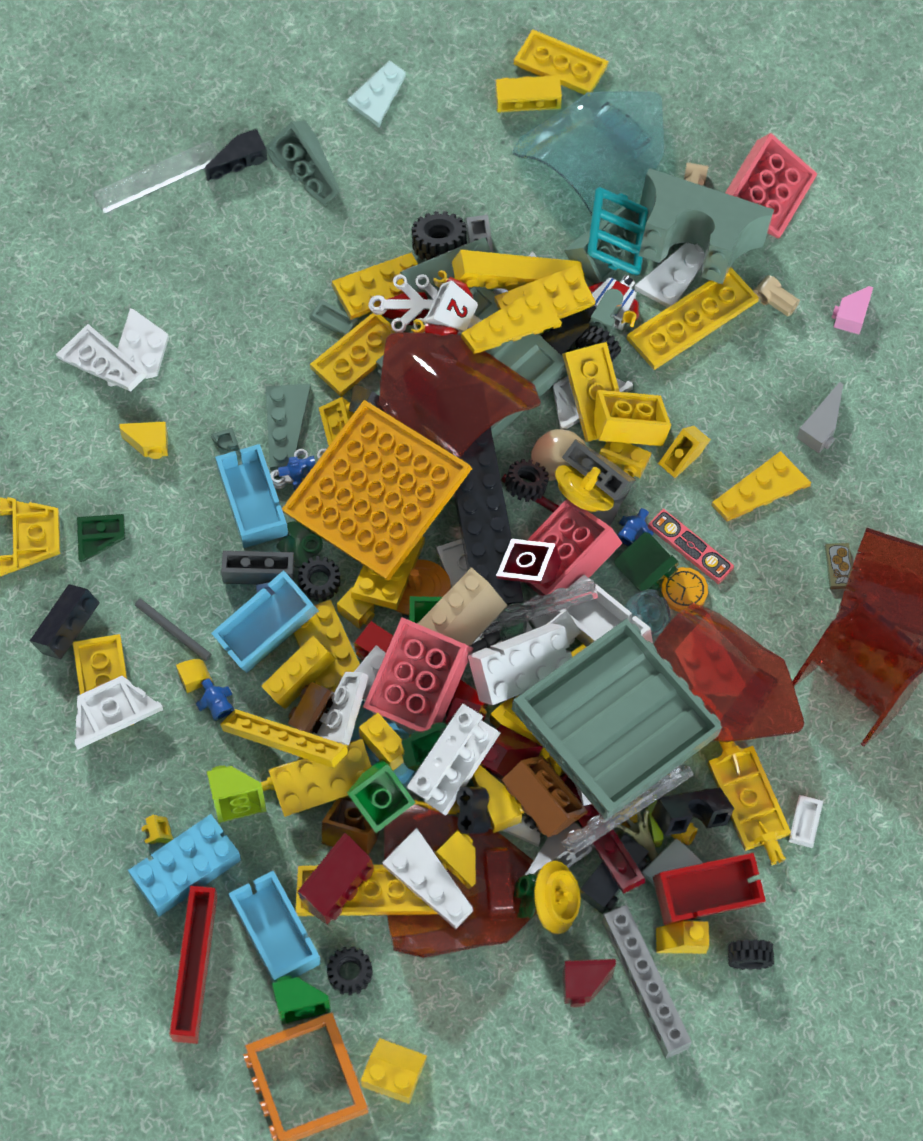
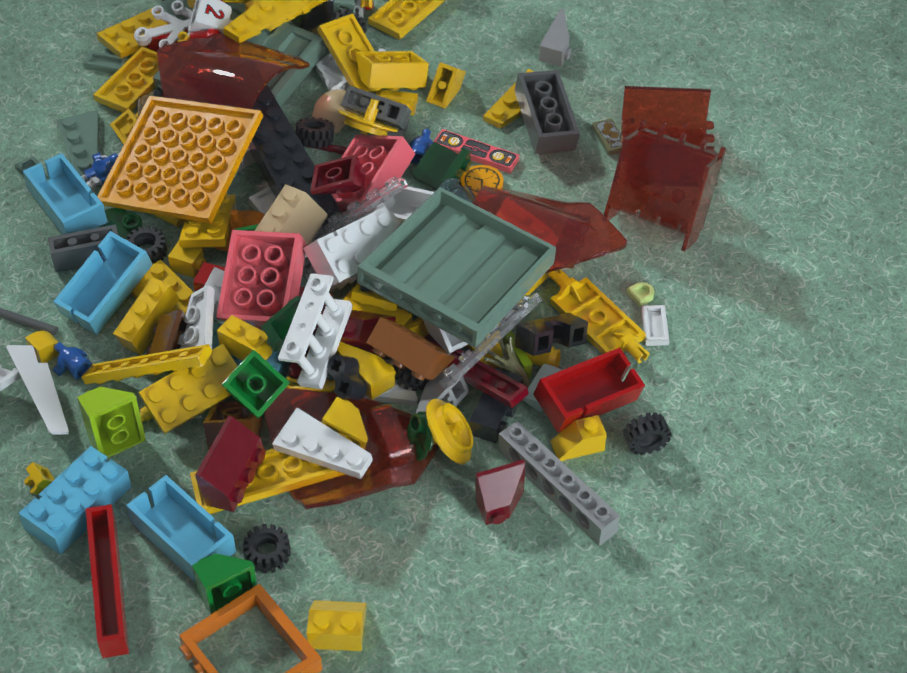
camera: 15 degrees left, 15 degrees down
(178, 729) = (40, 386): none -> white wedge
(778, 522) = (546, 111): none -> dark grey brick
(805, 778) = (641, 293): none -> yellowish green tile

